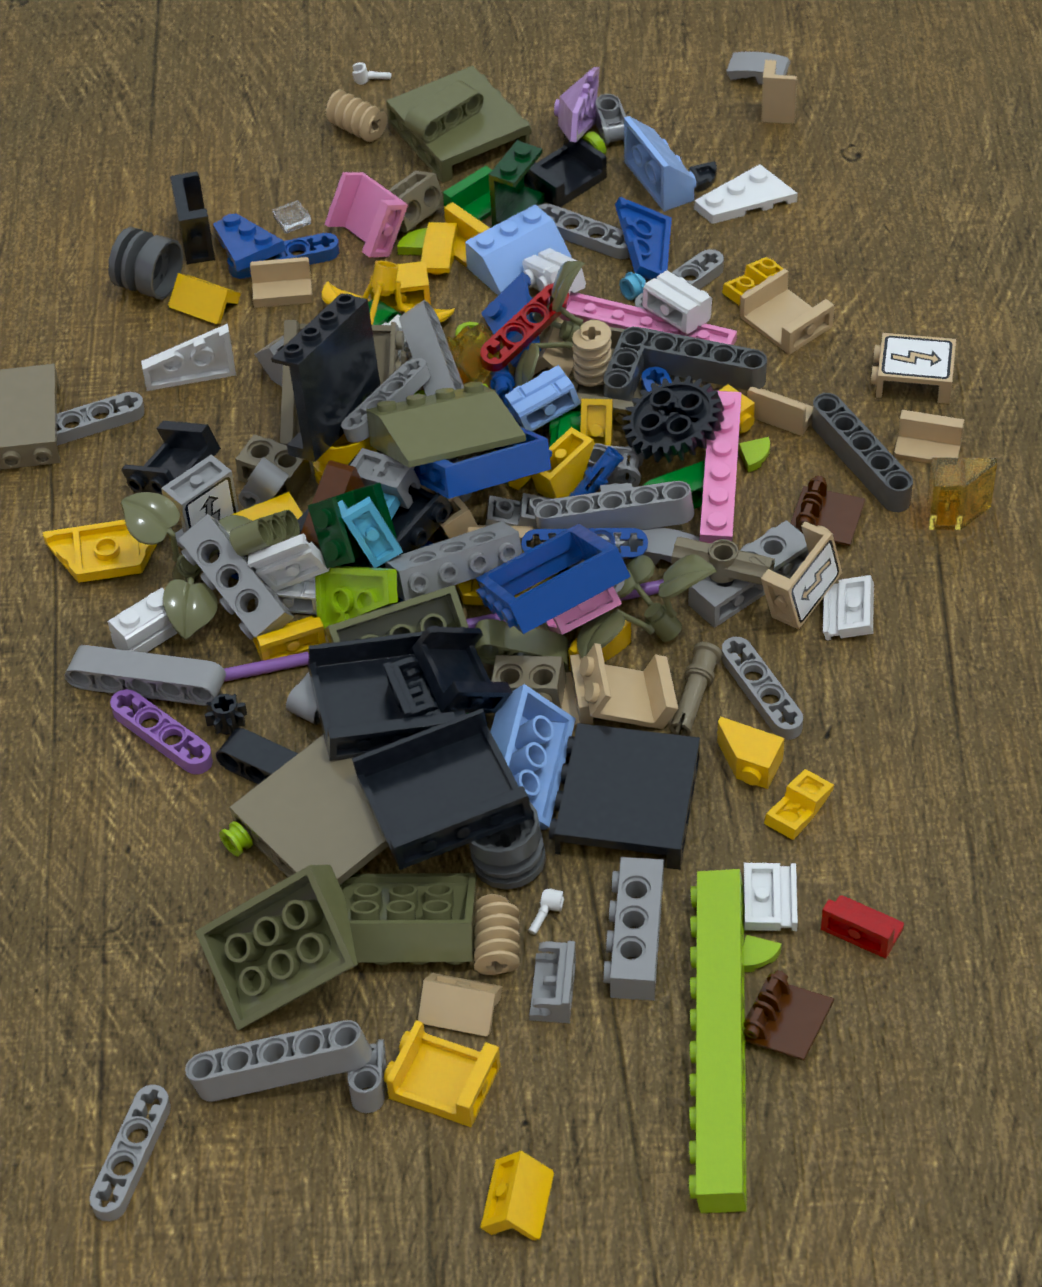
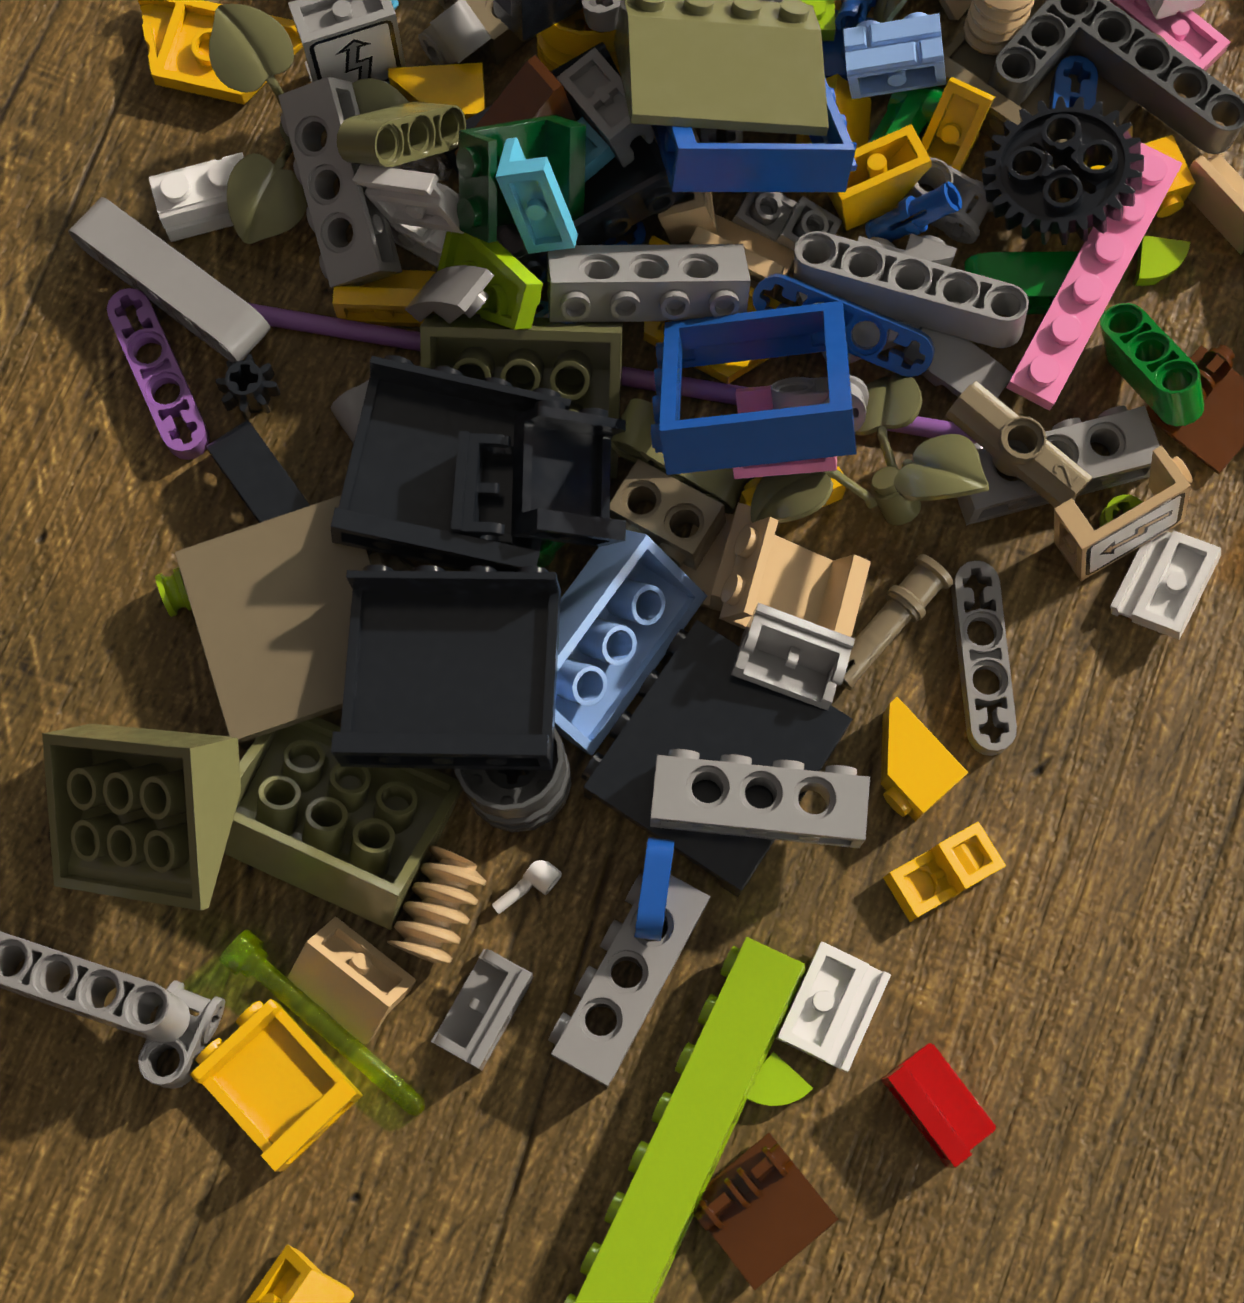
camera: 20 degrees right, 25 degrees up
(338, 603) = (452, 293): none -> light grey slope
(388, 1015) = (248, 958): none -> clear neon green piece
(627, 861) = (654, 889): none -> blue beam
(646, 714) = (792, 656): none -> light grey hinge
(666, 792) = (840, 786): none -> light grey brick
(779, 497) = (1152, 364): none -> green beam

